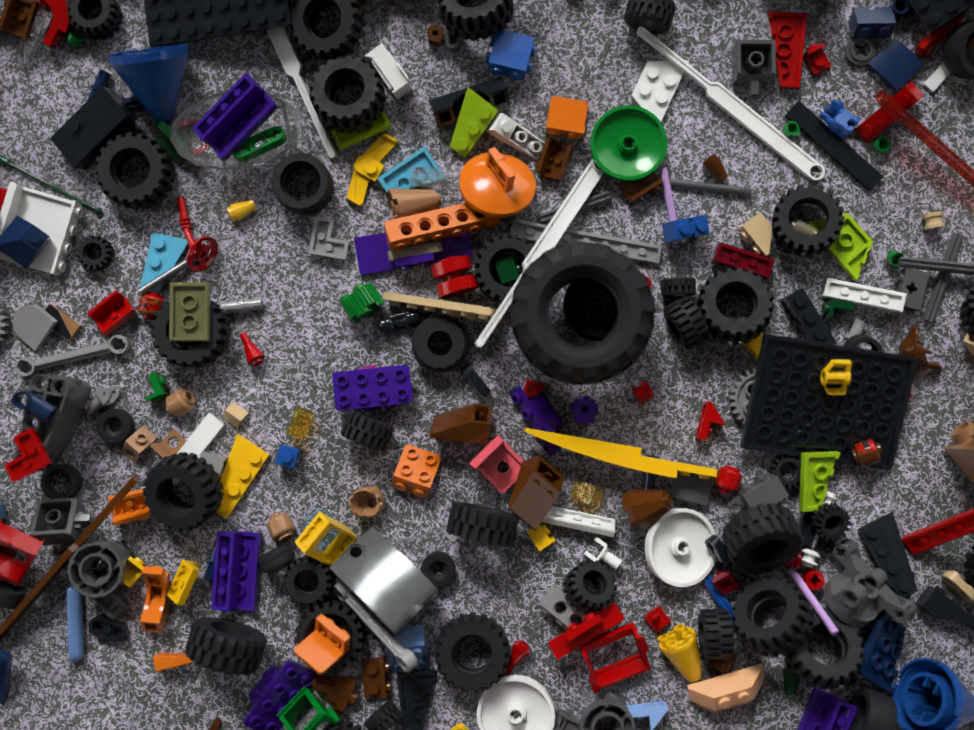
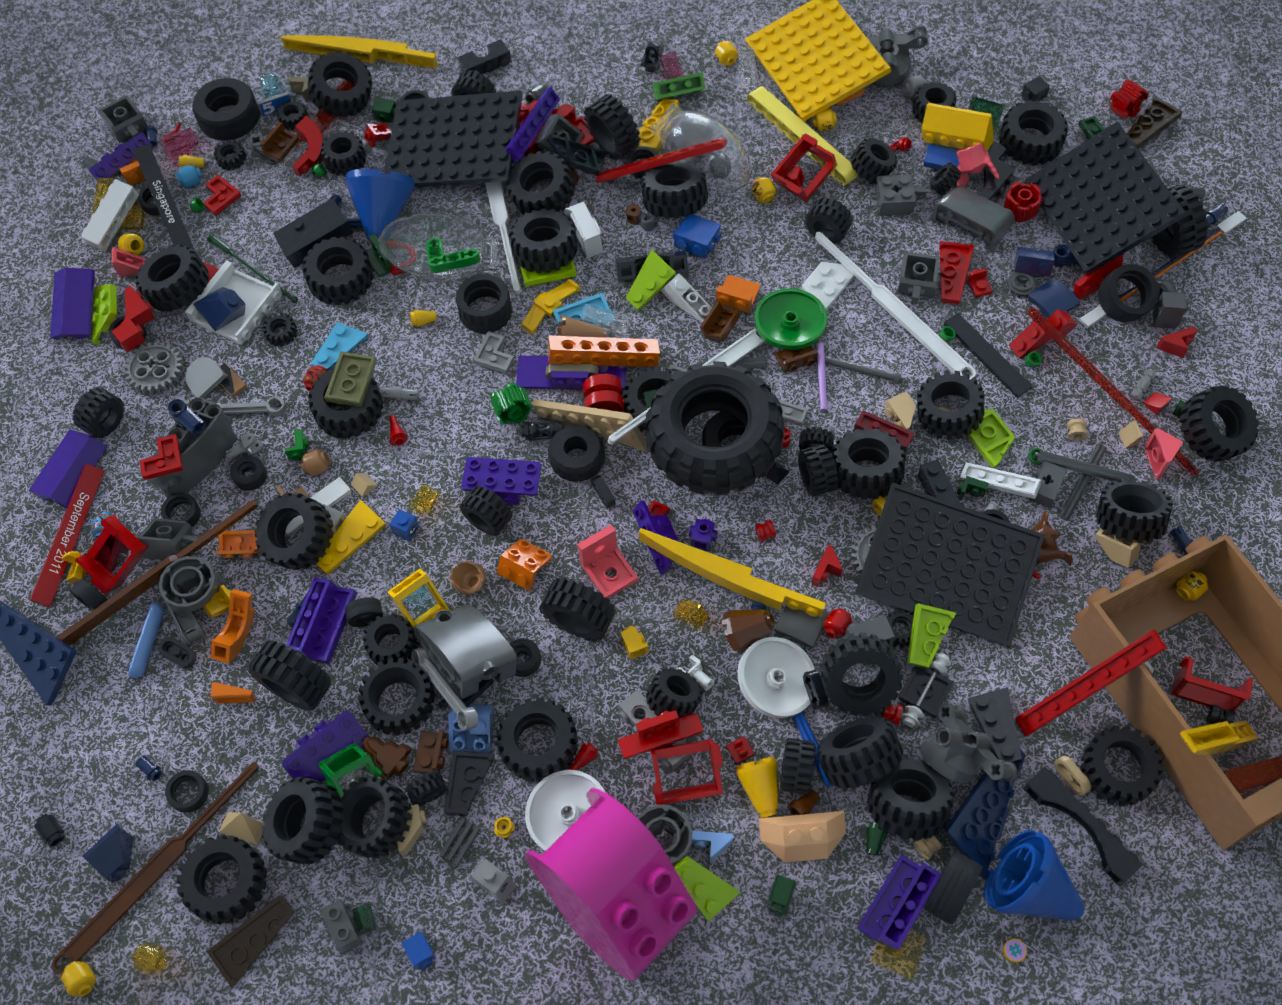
camera: 10 degrees right, 25 degrees down
(112, 312) = (278, 377): red bracket -> none
(138, 443) = (263, 489): medium nougat bracket -> none
(163, 277) = (333, 357): flat silver bar -> none
(183, 582) = (266, 619): yellow bracket -> none
(198, 250) = (373, 339): red dish -> none
(235, 117) = (439, 233): dark purple slope -> none
(280, 527) = (376, 587): medium nougat head -> none
(323, 645) = (394, 694): orange bracket -> none
(463, 424) = (582, 522): reddish brown slope -> none
(497, 184) = (661, 327): orange bracket -> none
(535, 491) = (637, 590): reddish brown slope -> none
(580, 521) = (675, 635): white tile -> none
(683, 228) = (824, 393): blue piece -> none
(715, 167) = (870, 353): reddish brown cone -> none
(725, 581) = (818, 721): dark red tile -> none
(810, 575) = (911, 743): red wheel -> none
(813, 601) = (911, 755): lavender bar -> none
(836, 377) = (965, 531): yellow piece -> none
(837, 529) = (928, 685): black tyre -> none
(843, 121) = (994, 332): blue animal -> none
(867, 453) = (983, 617): reddish brown head -> none

